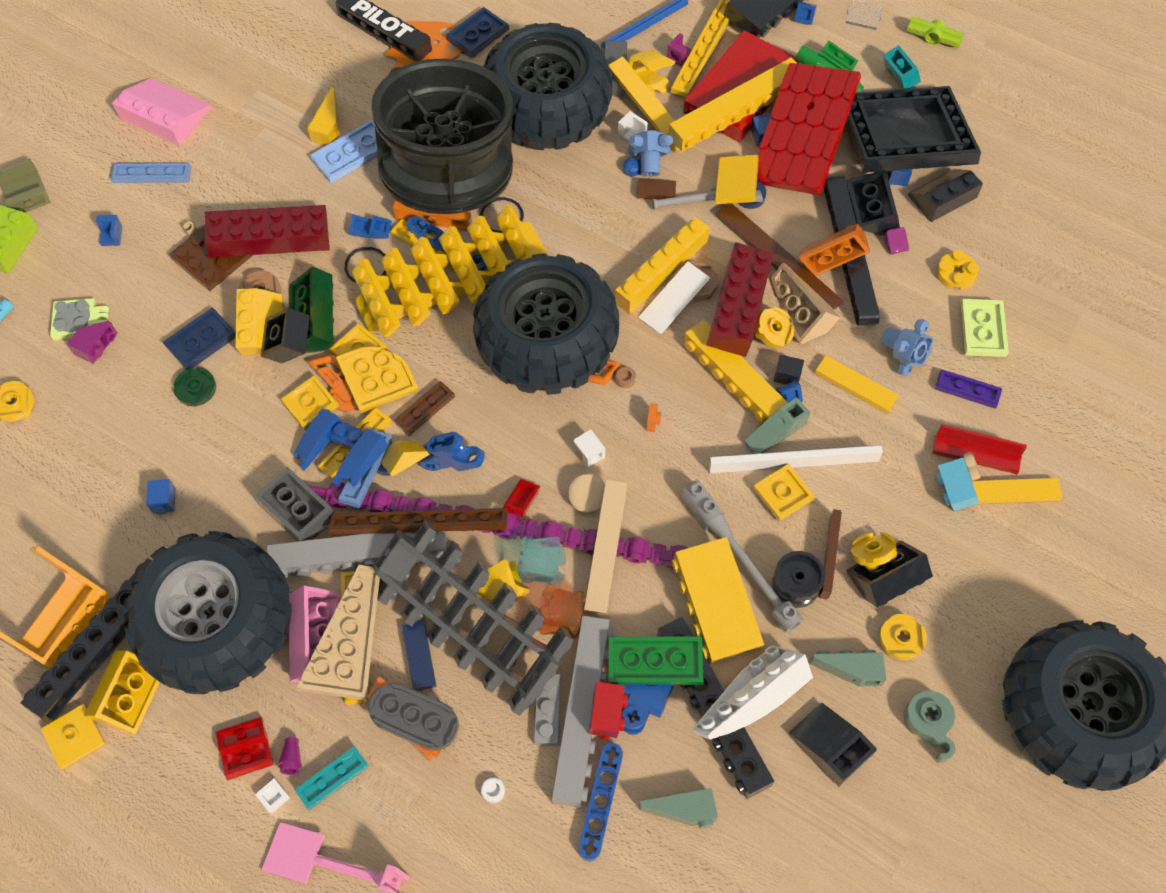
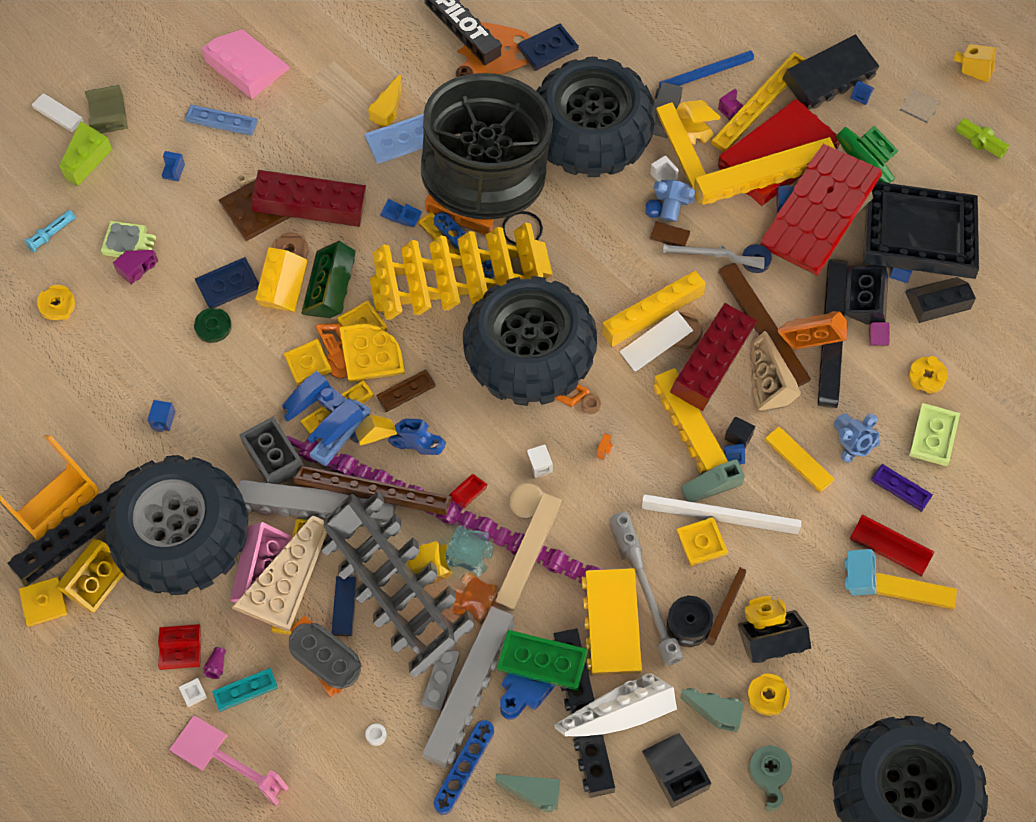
camera: 15 degrees right, 0 degrees up
(285, 335) = (300, 298): black brick -> none
(357, 250) = (386, 232): black piece -> none
(607, 710) = (488, 690): red brick -> none
(737, 179) = (745, 243): yellow tile -> none
(766, 332) = (729, 393): yellow plate -> none
(901, 68) = (936, 168): teal brick -> none
(972, 466) = (879, 558): tan tile -> none

